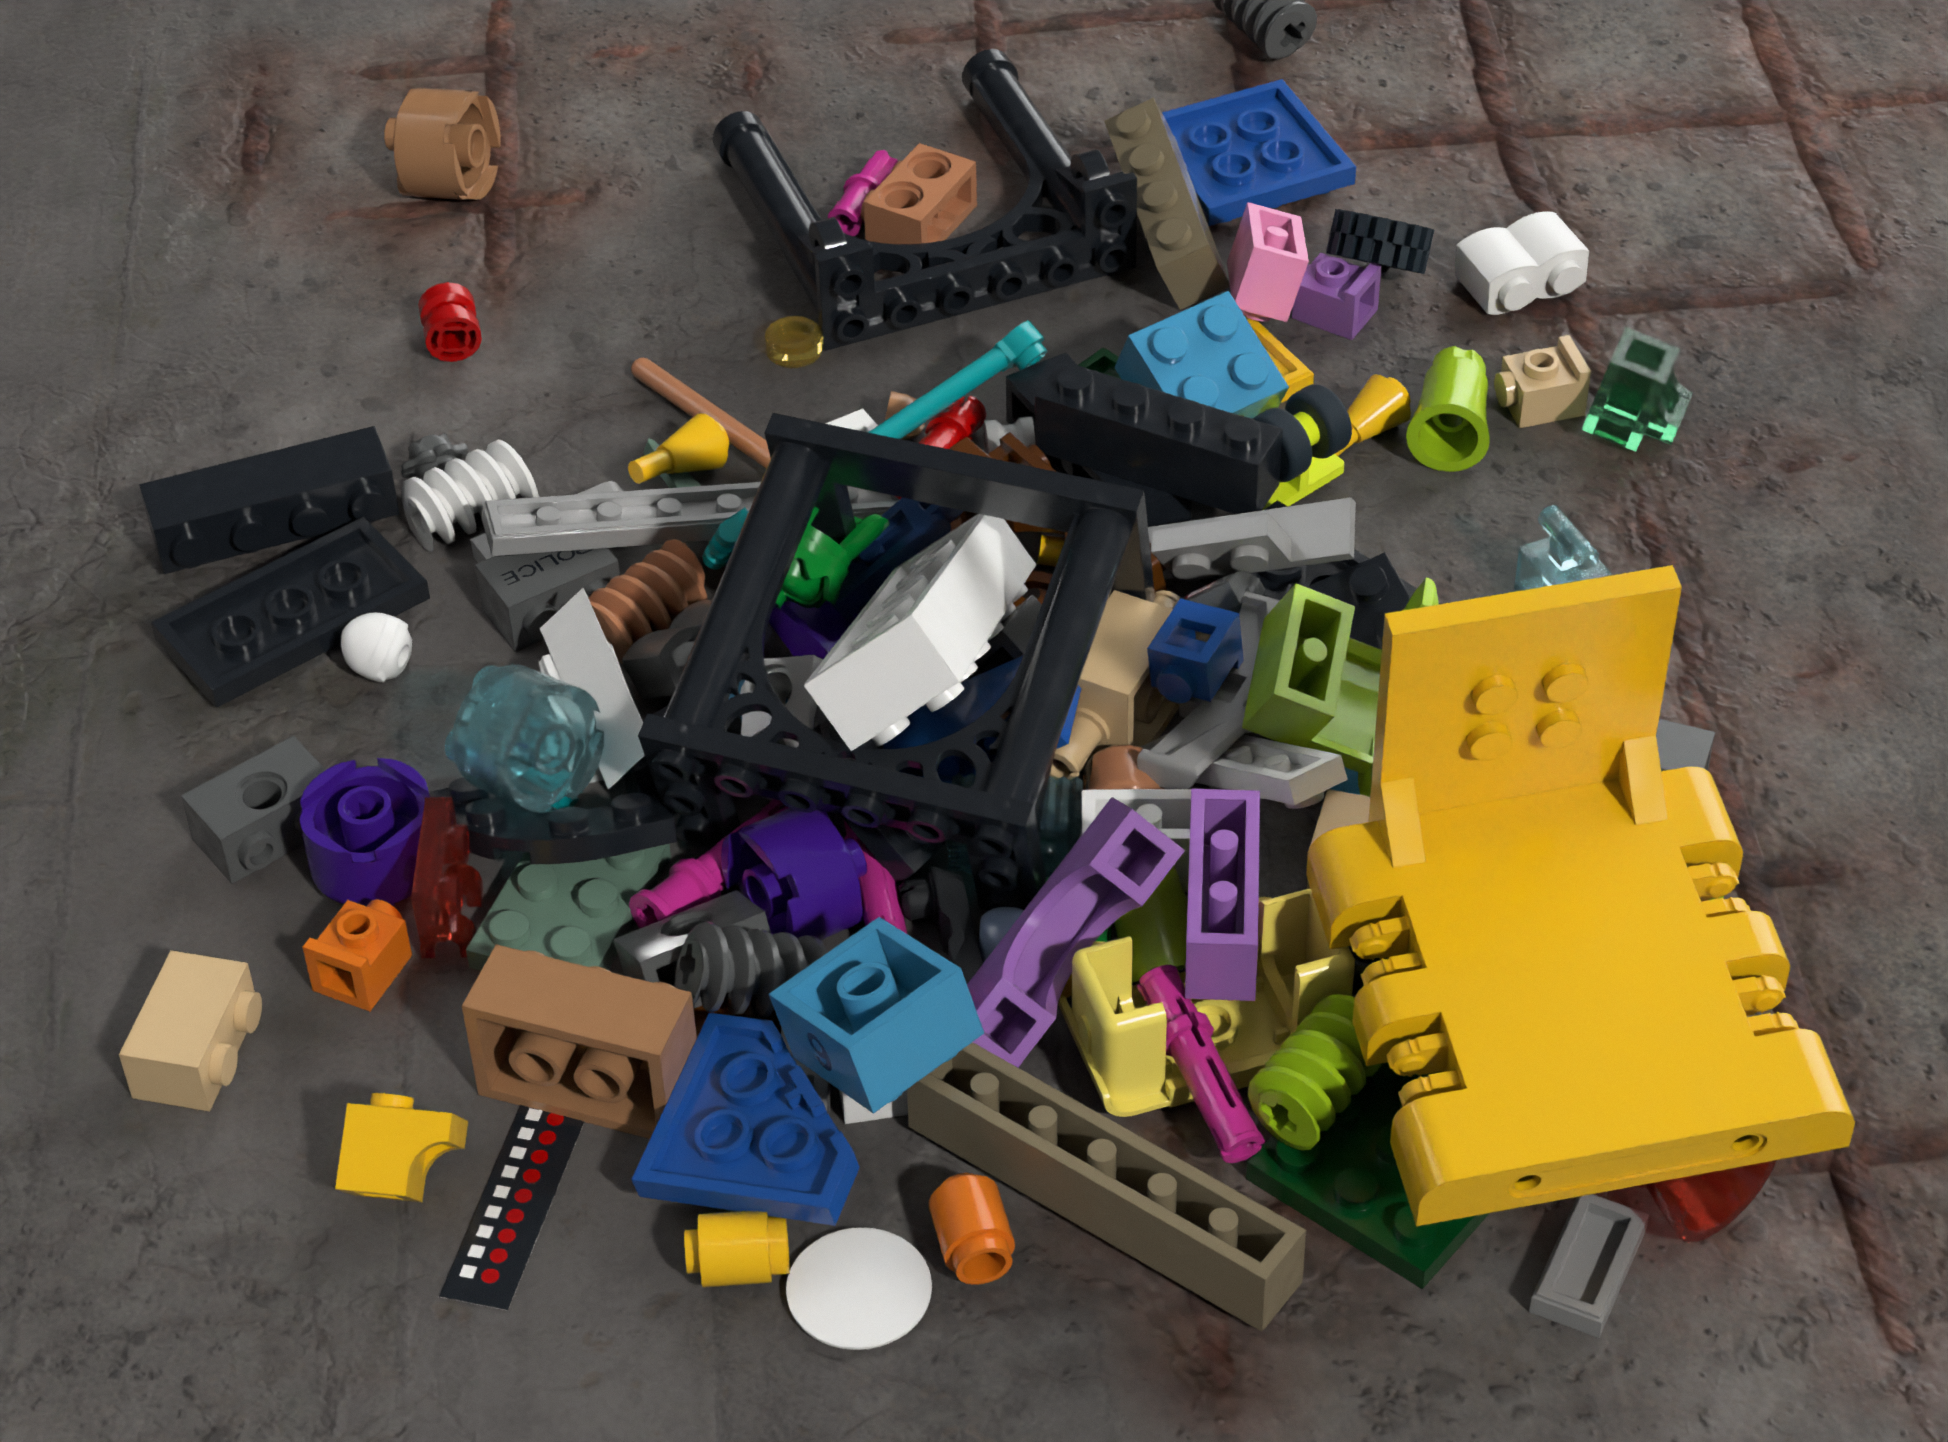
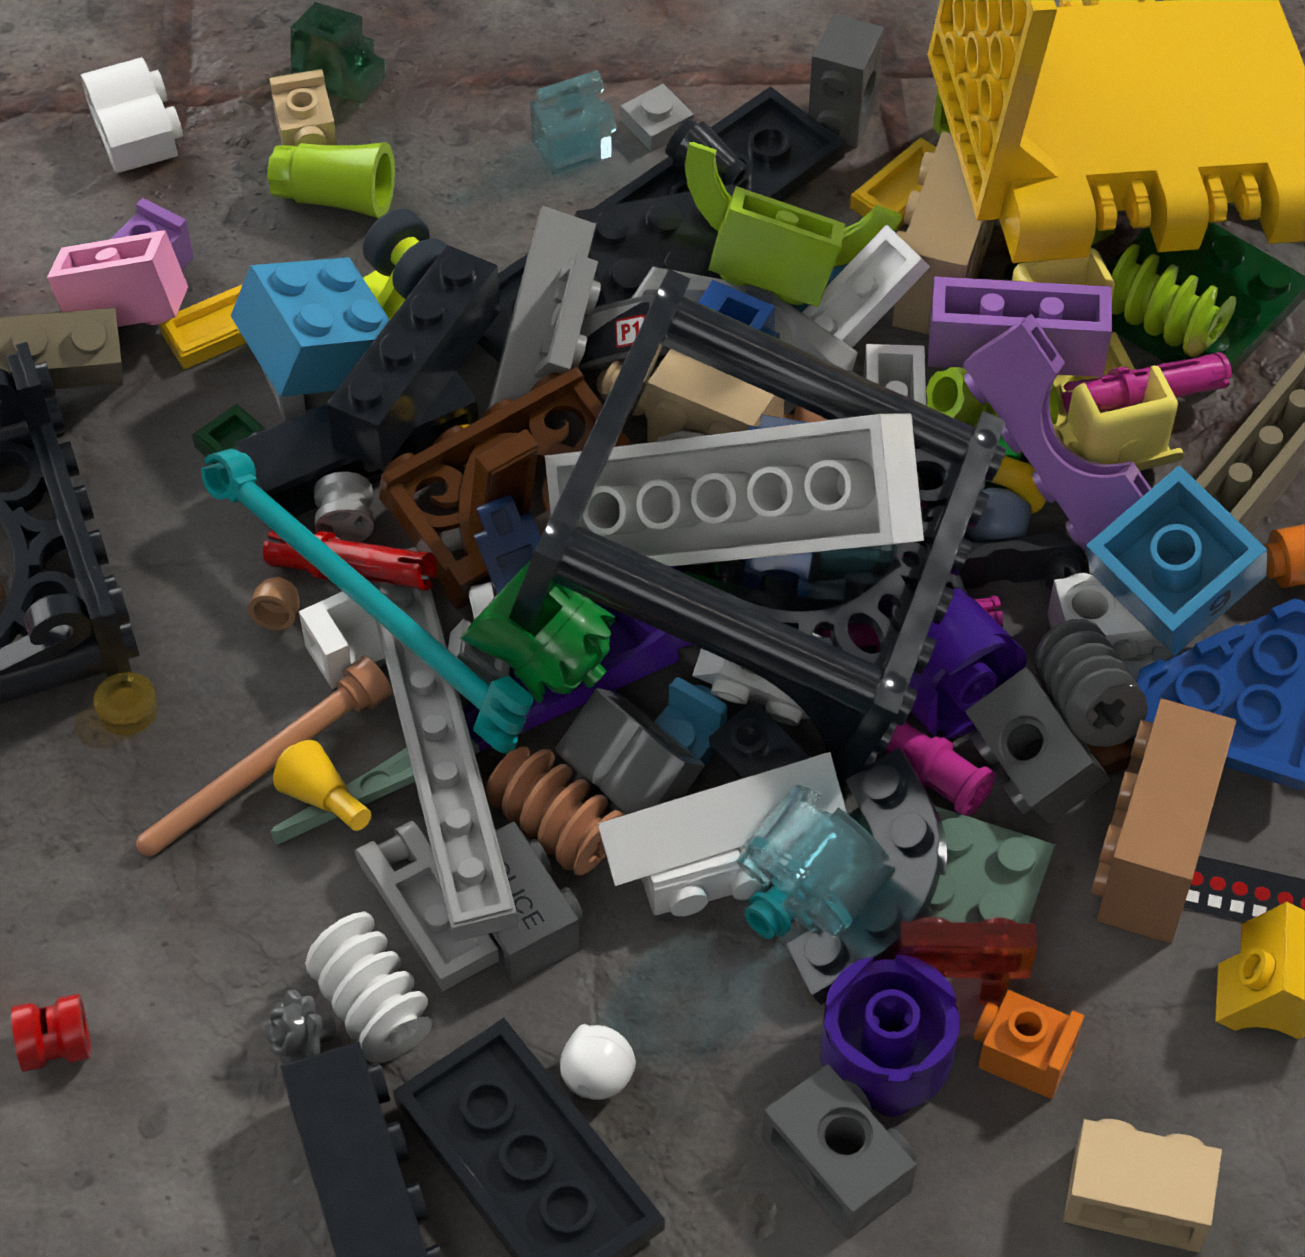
camera: 90 degrees left, 10 degrees up
(1377, 408) = (320, 233): yellow cone -> none
(1380, 241) = (99, 198): black bush -> none

